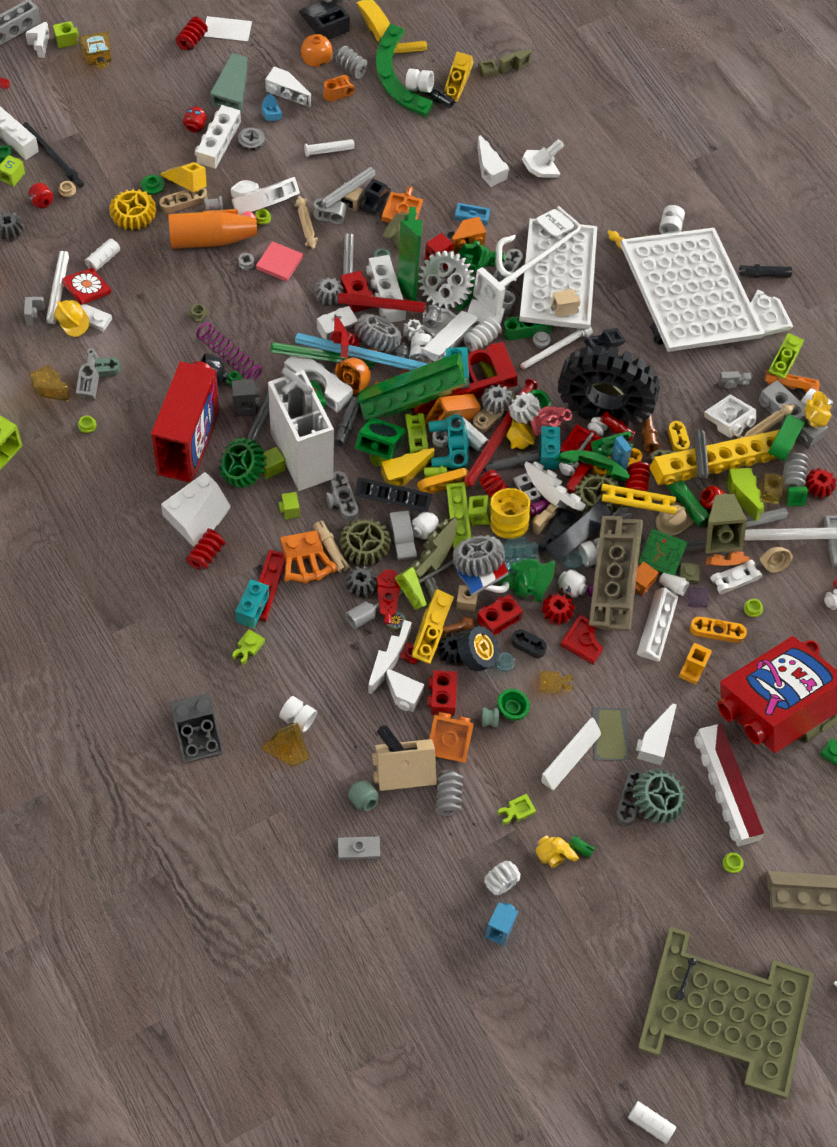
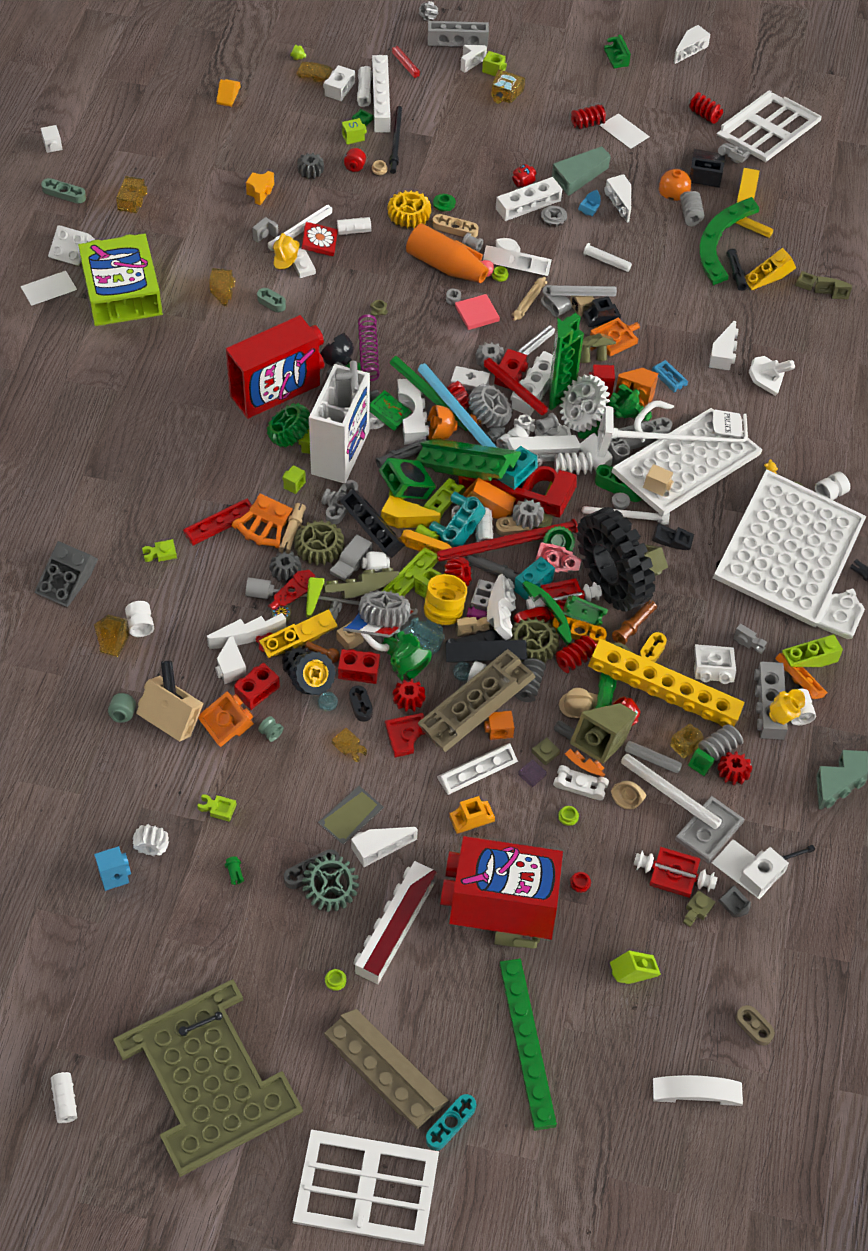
camera: 45 degrees right, 5 degrees down
(87, 385) = (250, 296): light grey piece -> none
(87, 424) = (218, 329): lime plate -> none
(189, 176) = (470, 210): yellow slope -> none
(196, 508) = (226, 435): white wedge -> none
(205, 549) = (201, 466): red piece -> none
(252, 603) = (189, 521): teal brick -> none
(337, 88) = (659, 220): orange piece -> none
(341, 337) = (448, 386): red slope -> none
(358, 848) = (82, 740): light grey plate -> none
(419, 80) = (729, 251): white wheel -> none
(447, 793) = (181, 753): light grey piece -> none
(513, 704) = (297, 733): green hat -> none
(520, 435) = (522, 552): yellow piece -> none
(524, 408) = (539, 533): white gear -> none
(553, 851) = (209, 855): yellow head -> none
(571, 754) = (301, 801): white slope -> none
(572, 583) = (440, 686): white head -> none
(616, 426) = (606, 601): red pin -> none
(621, 452) = (578, 618): dark azure plate -> none
(647, 496) = (558, 671): yellow bar -> none
(663, 552) = (538, 719): green tile -> none
(674, 583) = (523, 749): white cone -> none
(701, 454) = (643, 663): dark grey axle -> none
(731, 637) = (522, 818): light orange beam -> none
(743, 486) = (659, 725): lime slope -> none
(770, 421) = (741, 688): tan wheel -> none
(786, 437) = (735, 707): green beam -> none

